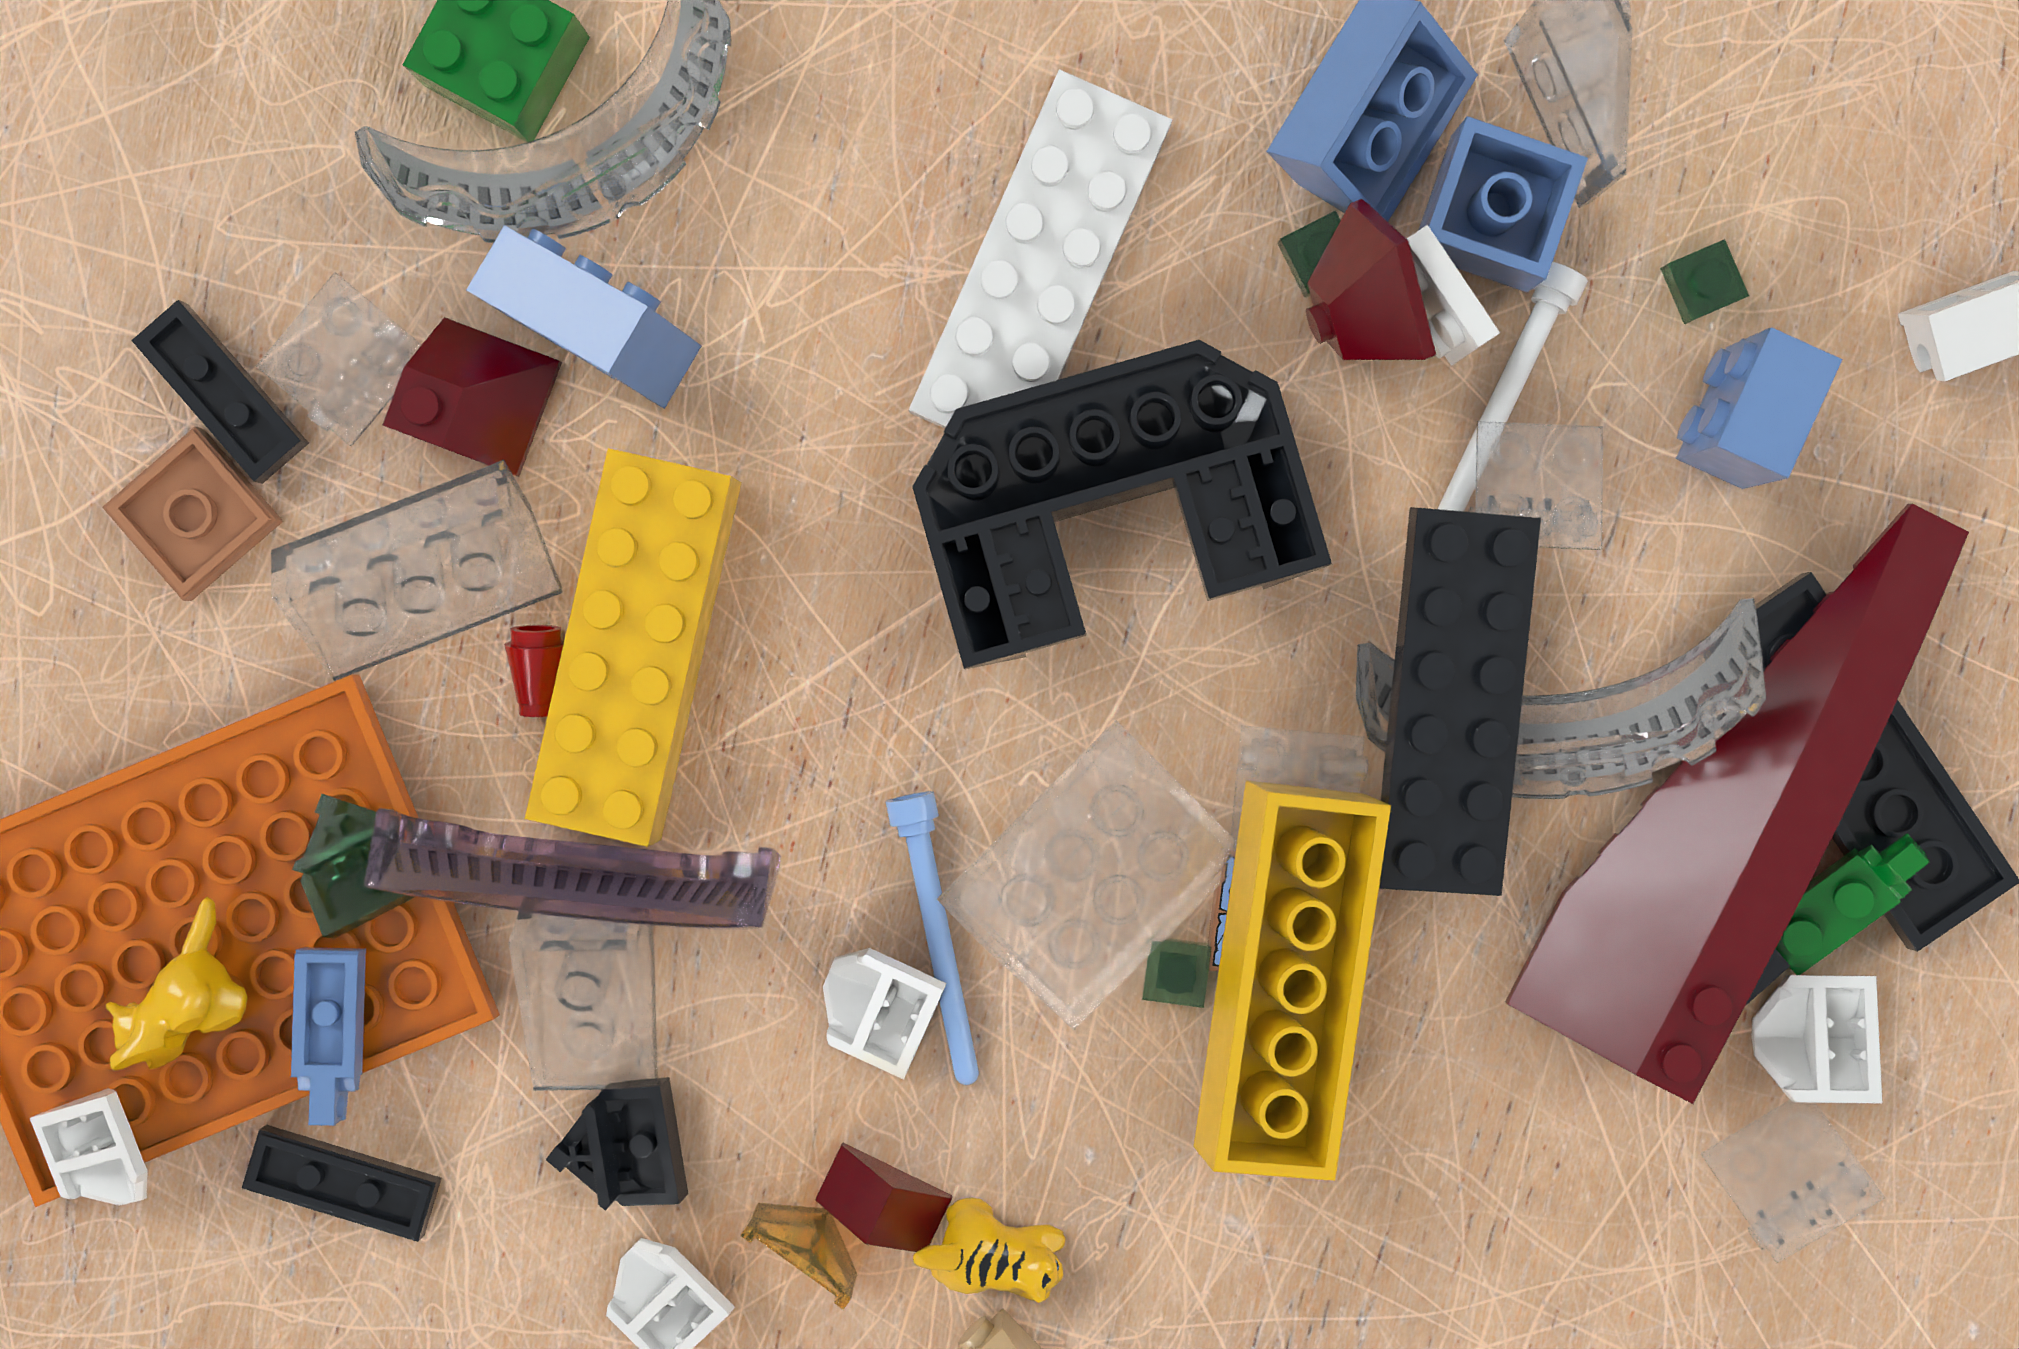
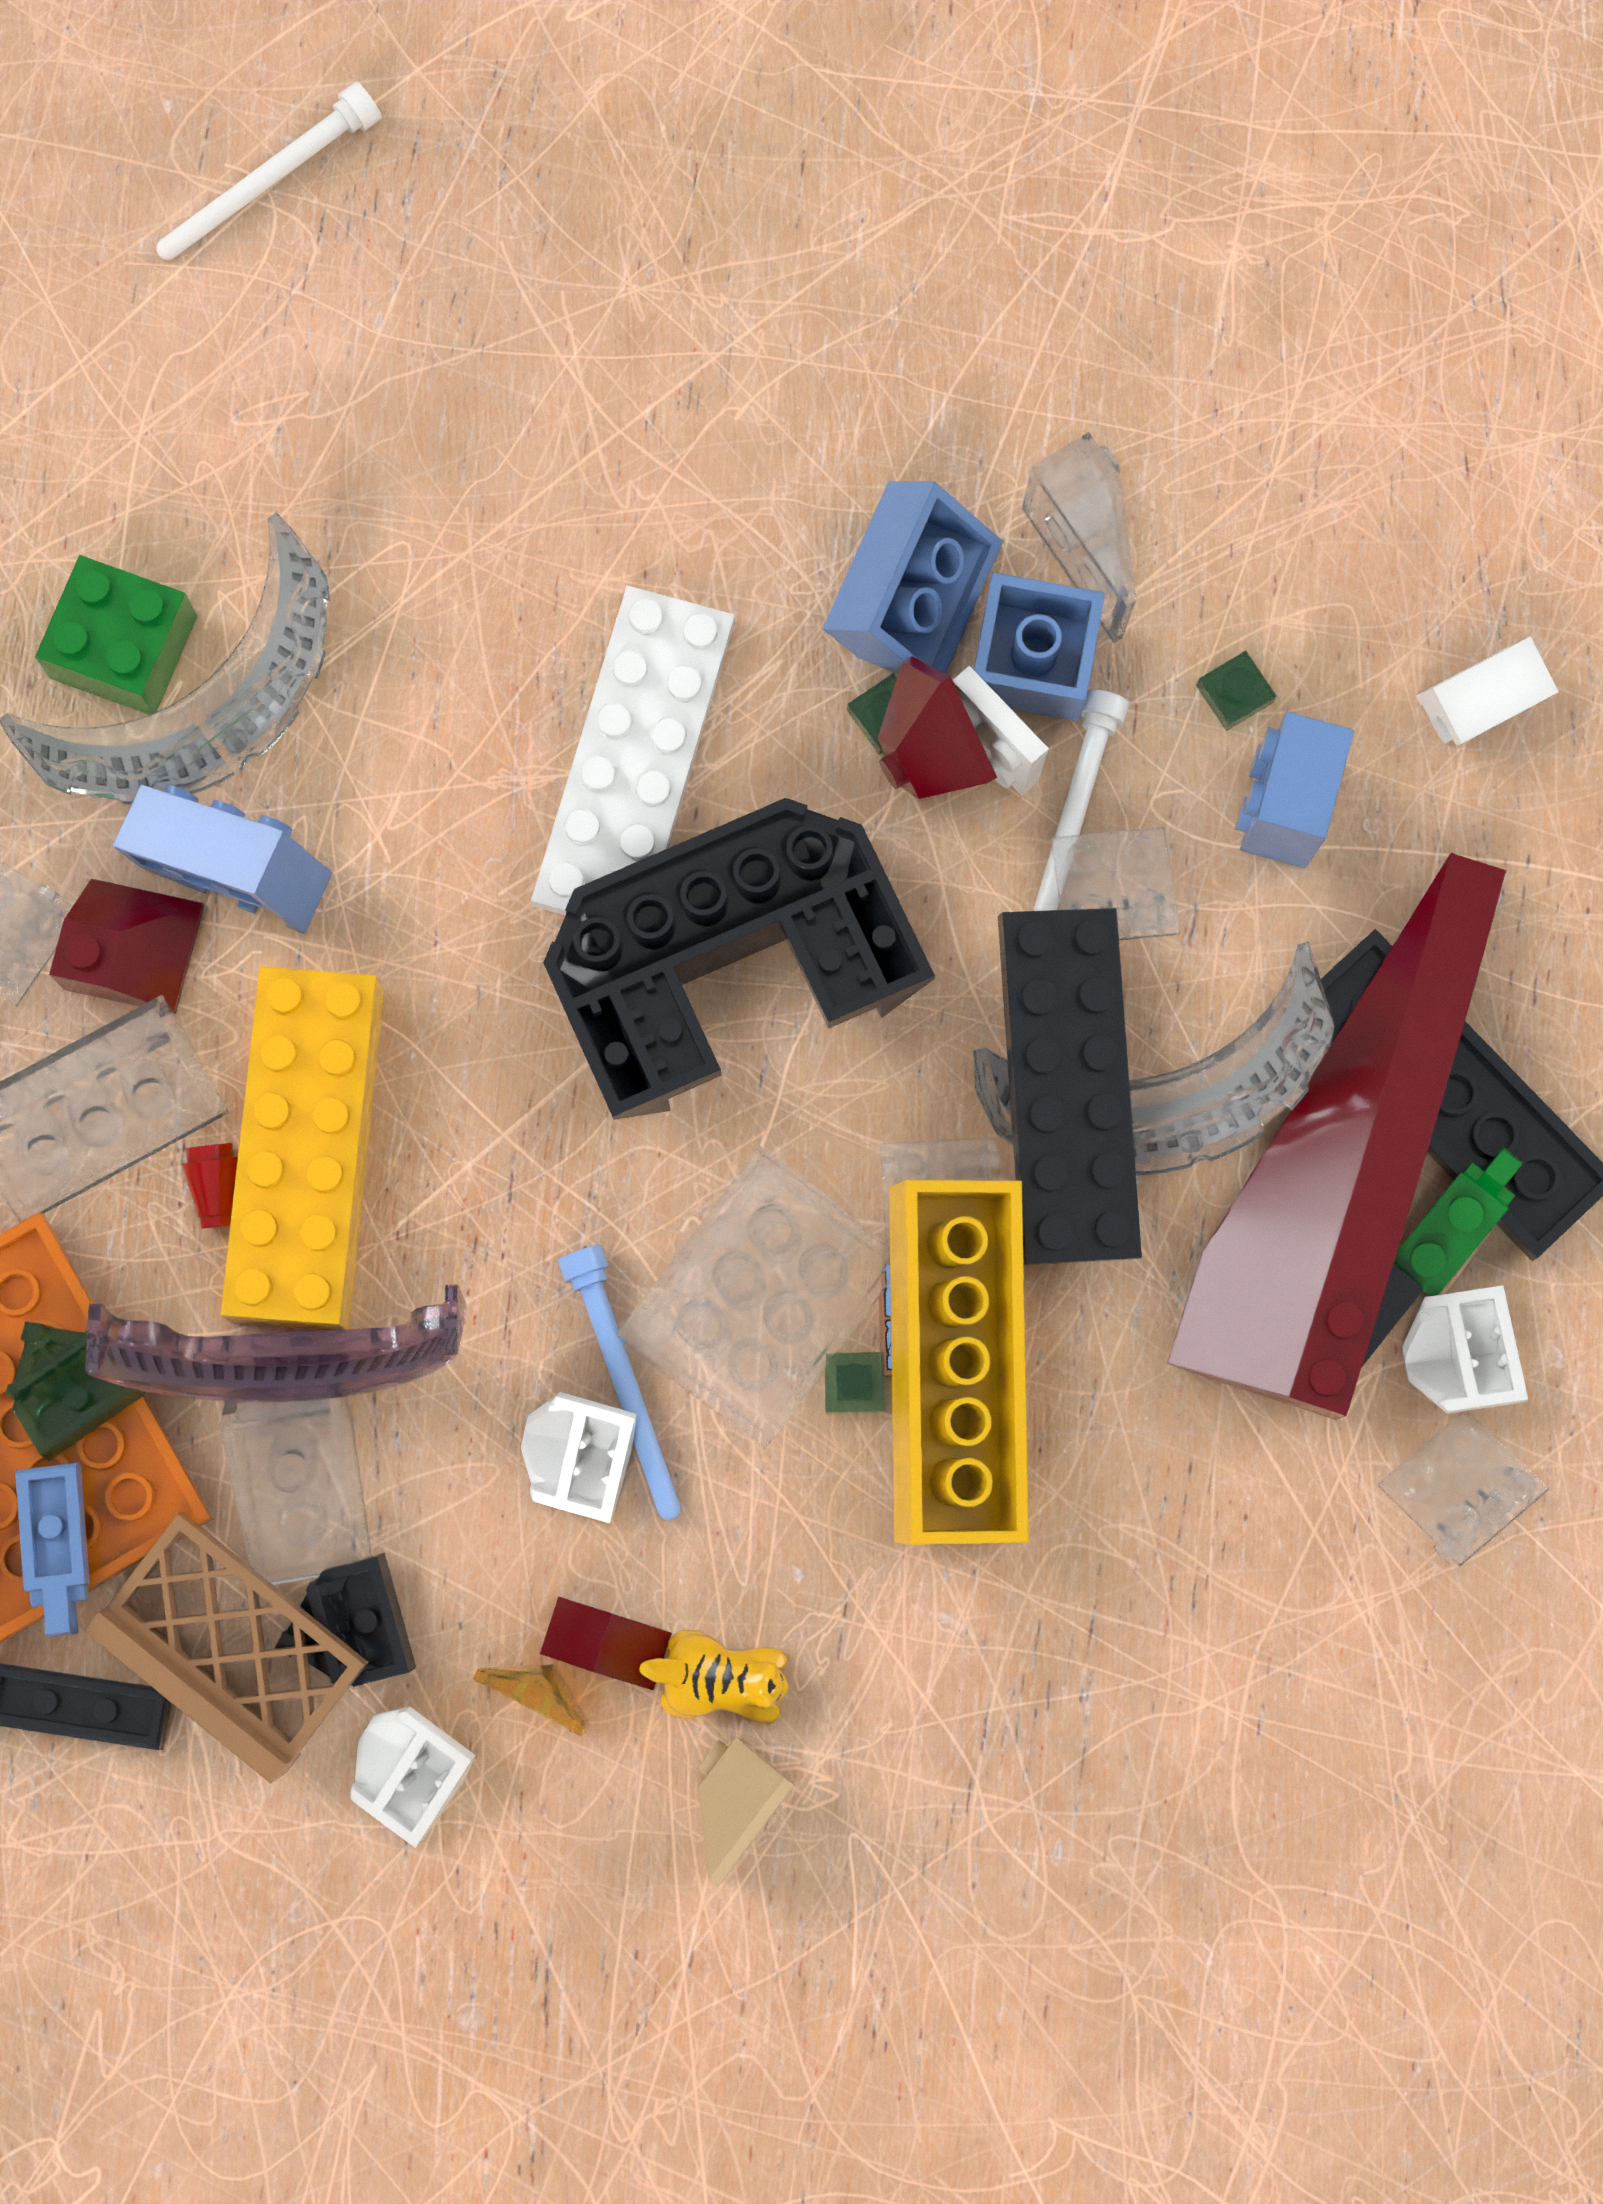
camera: 10 degrees left, 10 degrees down
(469, 1199) = (195, 1689): none -> medium nougat fence

